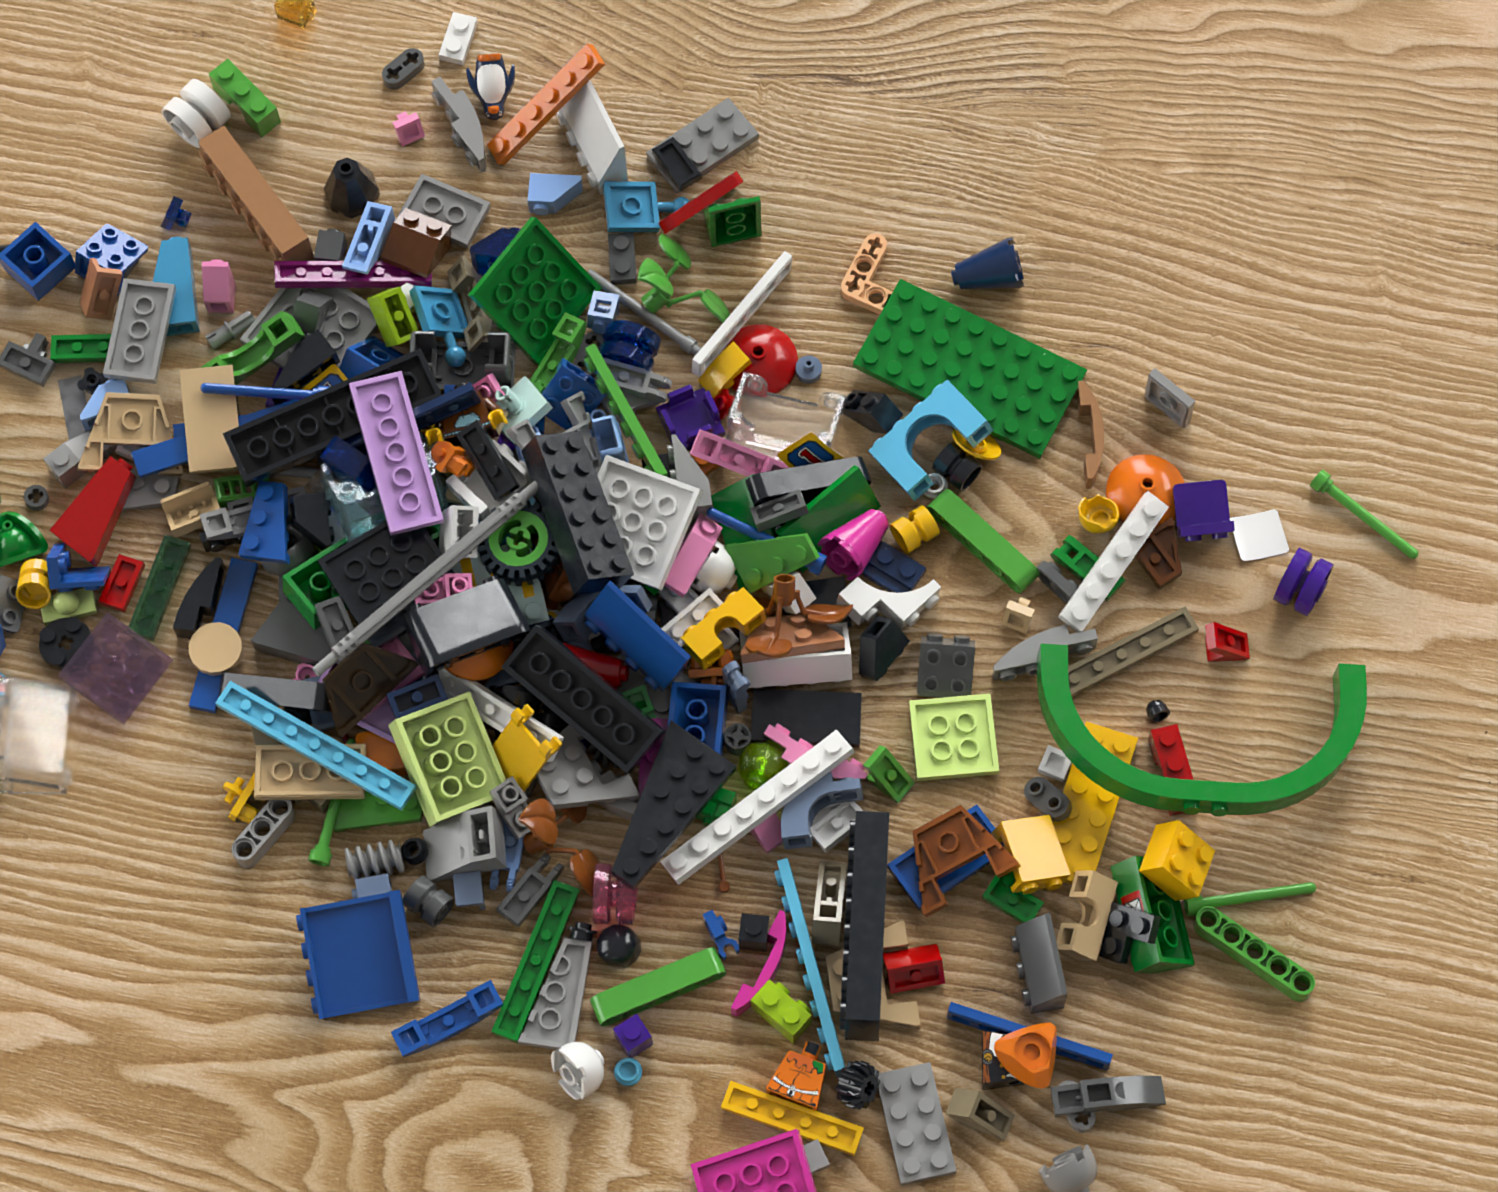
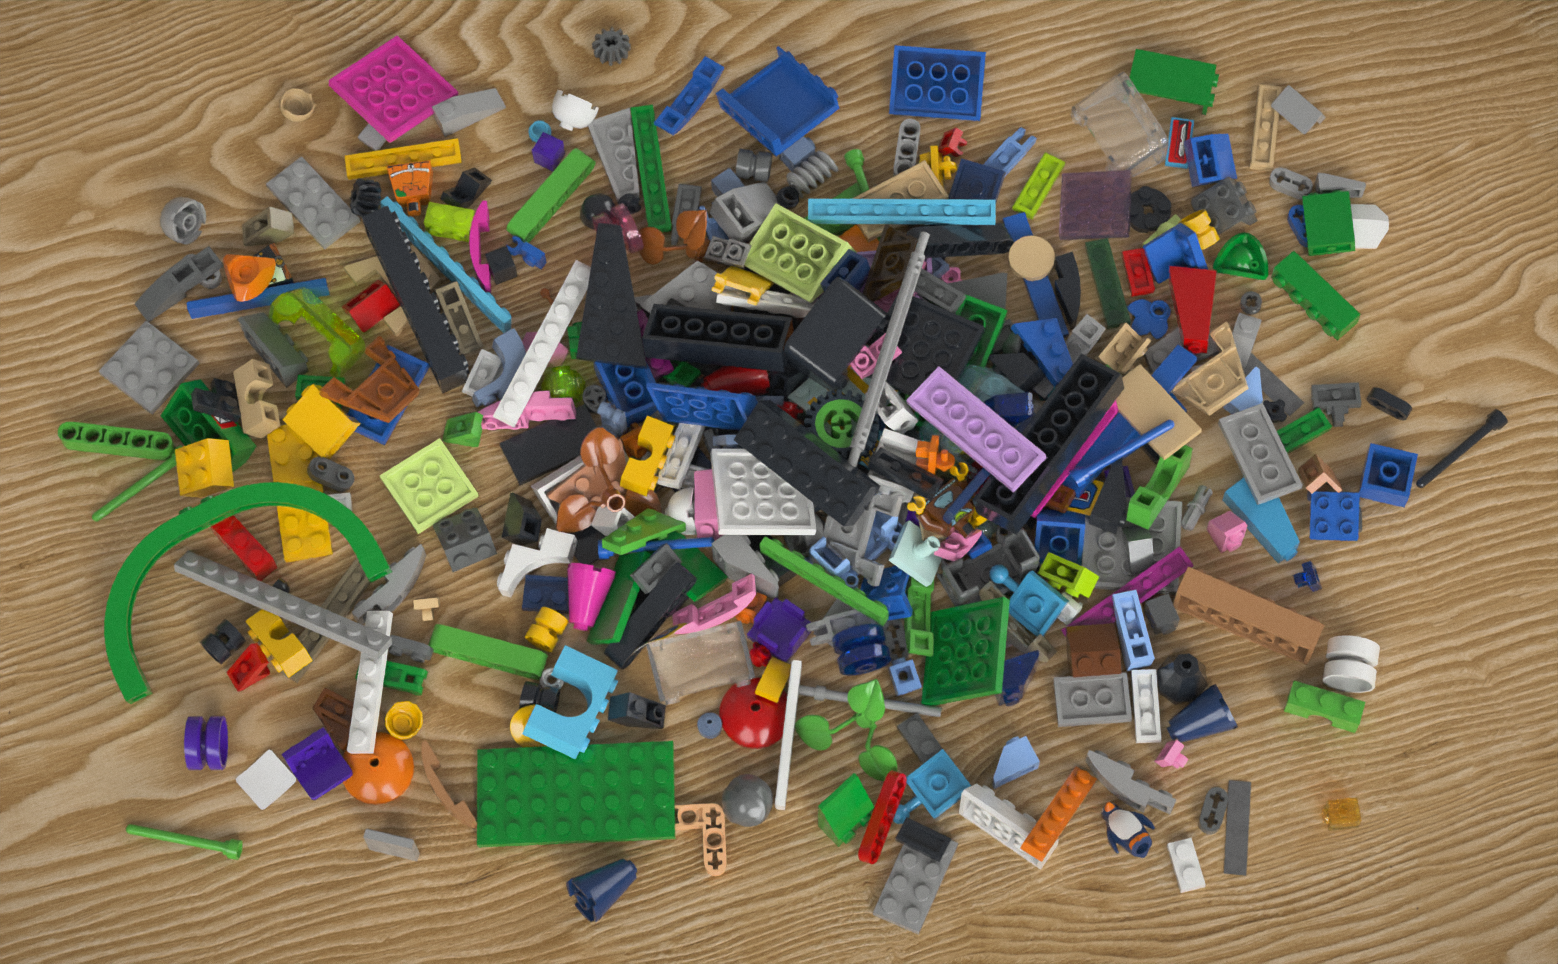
camera: 150 degrees right, 0 degrees up
(147, 534) = (1146, 319): none -> blue plate
(154, 729) = (1038, 185): none -> lime tile
(164, 774) = (1010, 152): none -> medium blue hinge
(179, 895) = (937, 83): none -> blue slope
(211, 819) = (950, 141): none -> red tile
(219, 752) = (976, 182): none -> dark blue plate
(359, 140) = (1202, 717): none -> dark blue cone
(391, 48) = (1237, 827): none -> flat silver sticker
(402, 178) = (1146, 706): none -> white plate
(486, 1135) = (611, 46): none -> dark grey gear
(557, 601) = (790, 408): none -> red plate
(690, 1138) = (466, 110): none -> light grey slope
(745, 1045) = (468, 189): none -> black slope
(815, 276) = (747, 800): none -> dark grey piece
(989, 974) = (301, 302): none -> clear neon green windscreen
(1161, 675) = (283, 604): none -> light grey plate
(1182, 1025) = (149, 367): none -> light grey plate
(1191, 670) = (287, 653): none -> yellow arch
(1243, 680) = (215, 646): none -> black wheel

